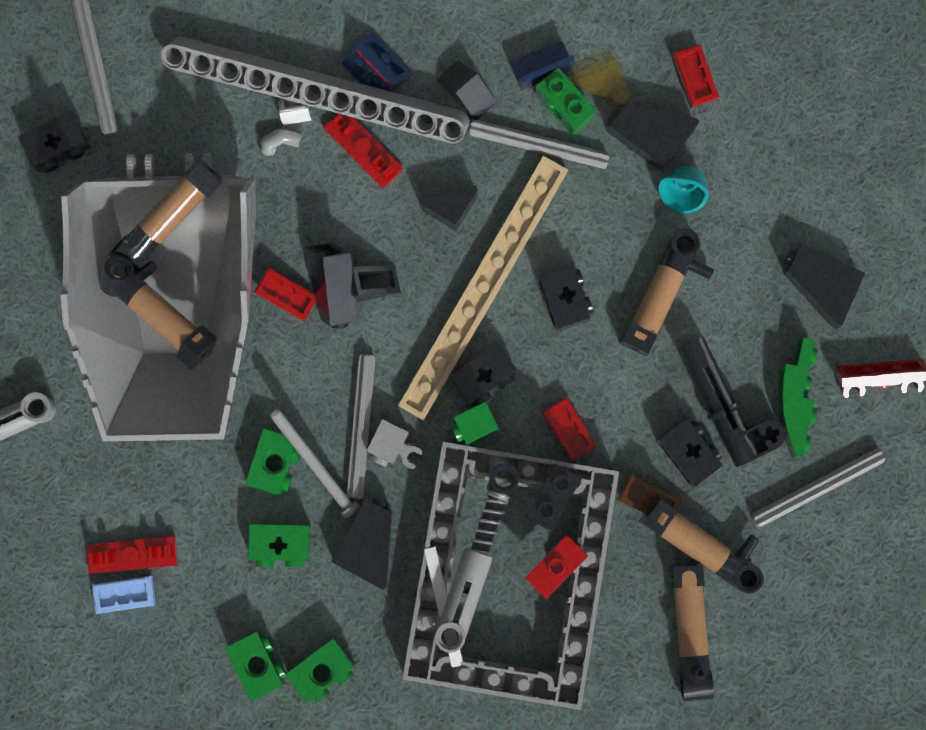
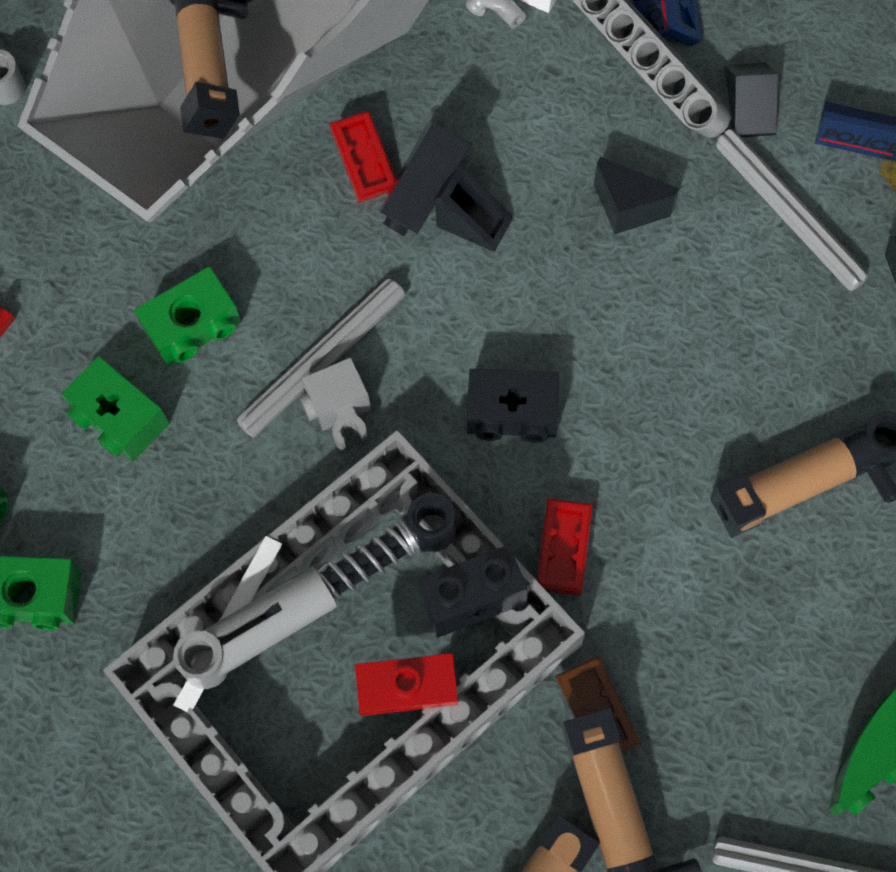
camera: 40 degrees right, 15 degrees down
(348, 507) = (230, 350): light grey bar -> none
(363, 149) = (581, 75): red plate -> none
(367, 544) = (212, 489): black slope -> none
(474, 425) = (453, 443): green brick -> none
(483, 288) = (593, 311): tan plate -> none
(552, 286) = (688, 366): black brick -> none
(565, 102) = (859, 181): green brick -> none
(692, 469) = (684, 716): black brick -> none
(738, 440) = (773, 723): black piece -> none

